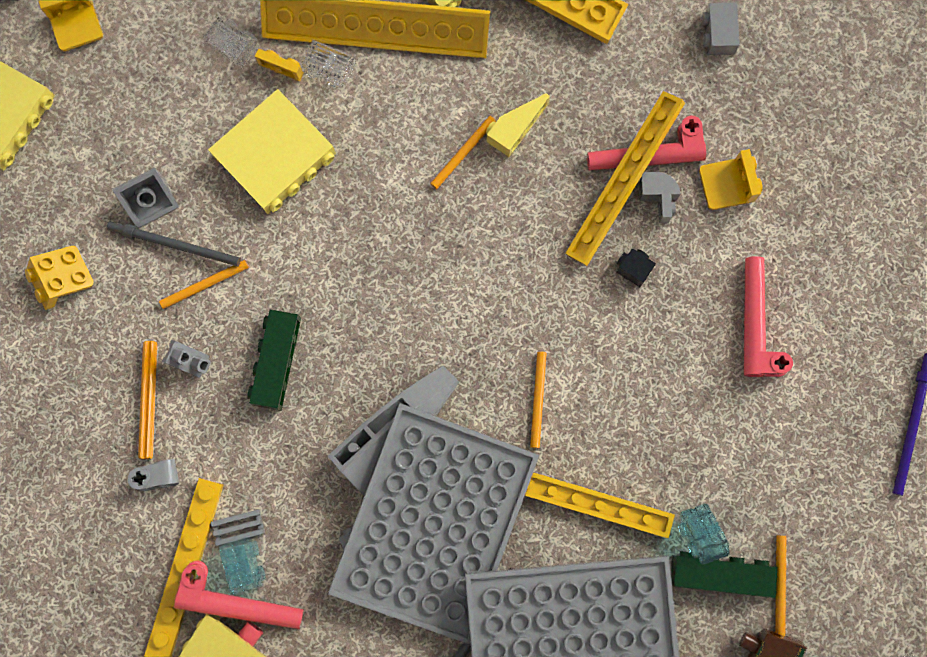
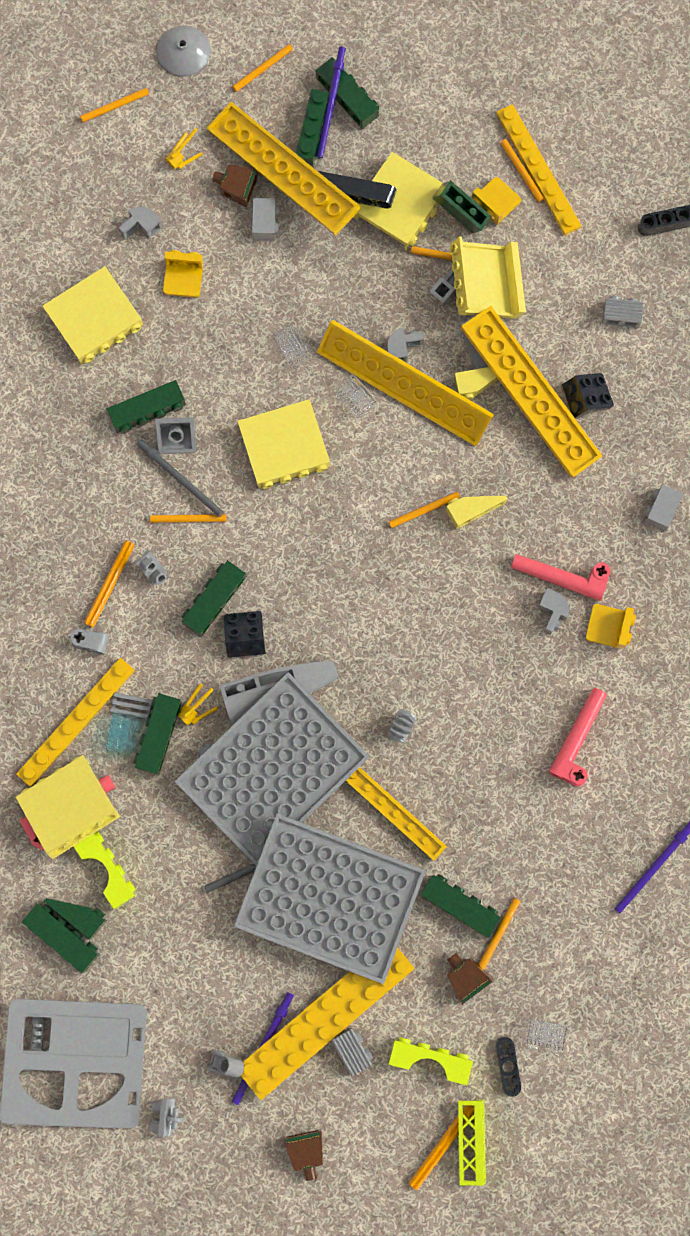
camera: 20 degrees right, 0 degrees up
(57, 275) = (86, 462): yellow bracket -> none
(96, 182) = (146, 407): none -> dark green brick
(194, 597) = (79, 739): coral axle -> none
(272, 61) = (323, 384): yellow plate -> none
(283, 546) = (158, 734): none -> dark green brick
(308, 504) = (189, 714): none -> yellow plant
(328, 384) = (244, 634): none -> black bracket
(538, 400) = (387, 722): light orange bar -> none
(556, 402) = (401, 726): none -> light grey gear
(625, 178) = (532, 586): yellow plate -> none
(635, 266) = (508, 655): black brick -> none
(703, 533) = (460, 868): clear light blue brick -> none

